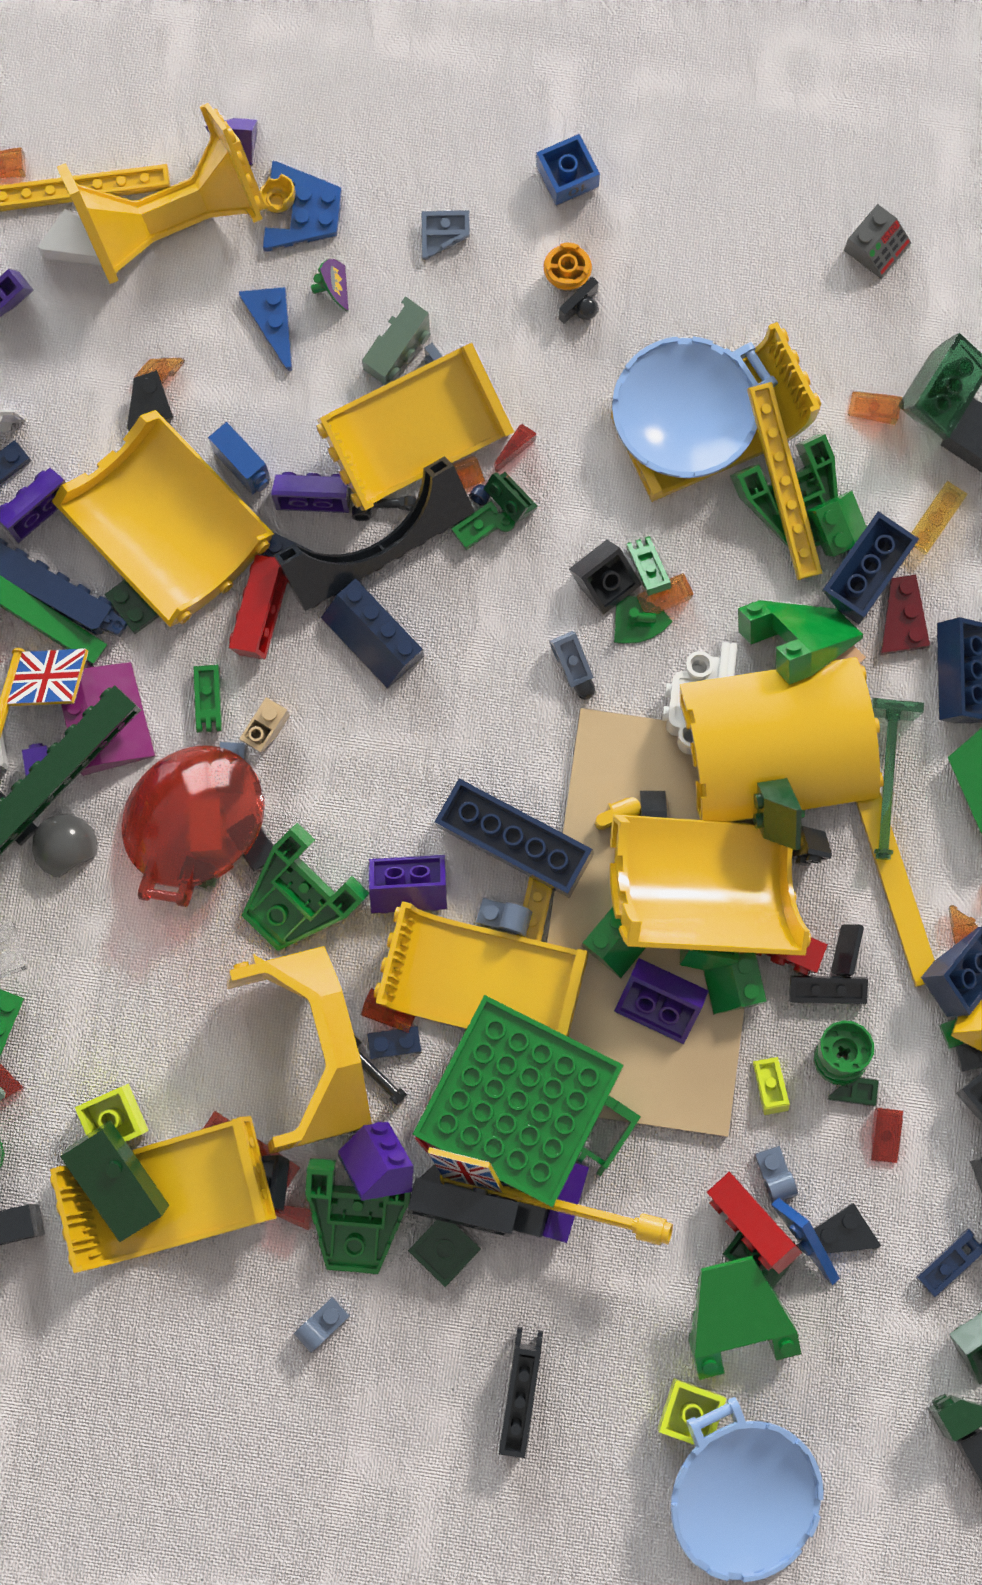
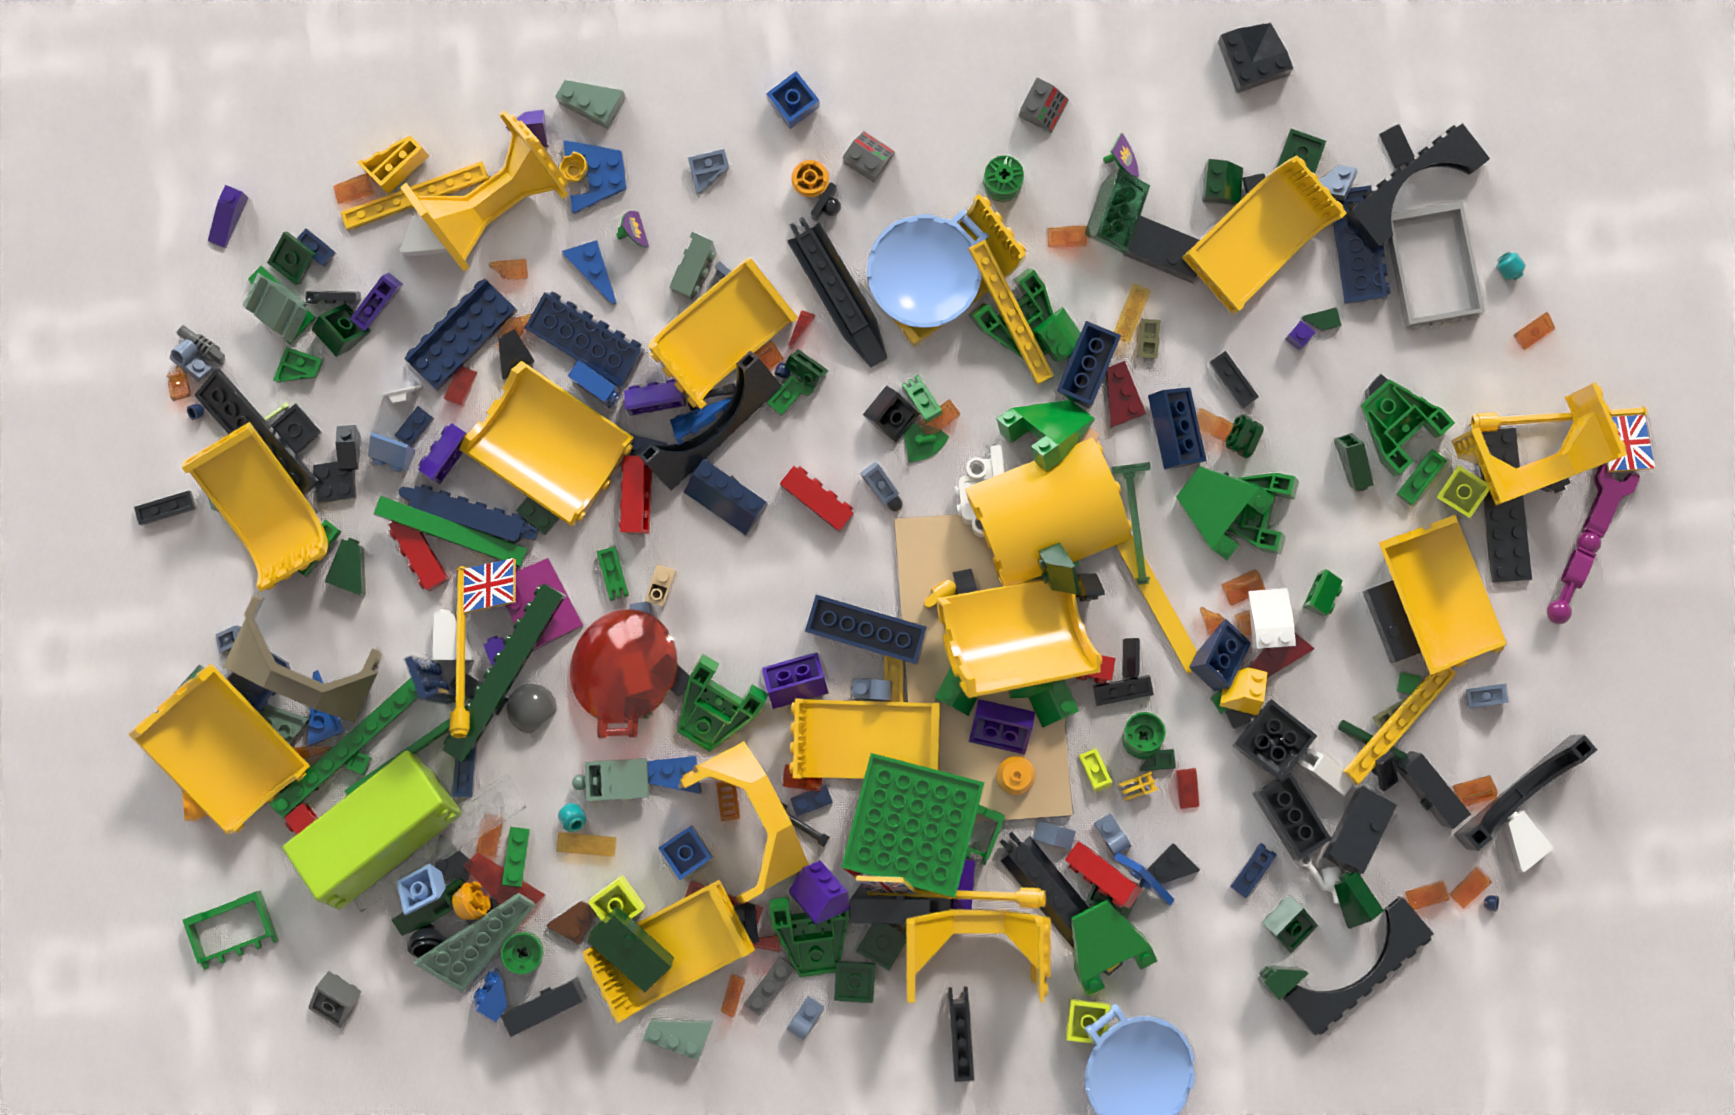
camera: 10 degrees left, 5 degrees up
(51, 1131) = (574, 922): none -> reddish brown wing
(58, 142) = (395, 163): none -> yellow wedge
(73, 428) = (460, 386): none -> clear red slope
(81, 995) = (572, 817): none -> teal head
(88, 364) = (460, 334): none -> dark blue bracket
(92, 1034) = (586, 844): none -> clear yellow plate
(151, 960) = (618, 780): none -> sand green slope
(152, 1311) = (679, 1036): none -> sand green wedge
(170, 299) = (511, 269): none -> clear orange slope
(213, 966) = (670, 771): none -> blue wing
(216, 1072) = (685, 852): none -> blue brick
(234, 1273) = (732, 995): none -> clear orange slope
(241, 401) = (584, 337): none -> dark blue bracket
(284, 1272) = (769, 986): none -> dark grey plate
(286, 1040) = (723, 817): none -> clear orange slope
(318, 120) = (591, 101): none -> sand green wedge
(358, 530) = (695, 420): none -> blue wing
(397, 1291) = (854, 981): none -> dark green plate
(487, 661) = (816, 498): none -> red brick
(572, 413) = (838, 291): none -> black hinge
(638, 1274) = (1027, 931): none -> yellow panel
(644, 258) = (868, 156): none -> dark grey slope
(662, 1194) = (1035, 870): none -> black hinge
(666, 1068) = (1016, 775): none -> light orange cone
(700, 1158) = (1054, 835): none -> sand blue slope
(806, 330) = (1003, 189): none -> green wheel
(825, 1118) = (1140, 785): none -> yellow arm
(952, 553) = (1149, 338): none -> olive slope
(965, 322) = (1123, 156): none -> shield

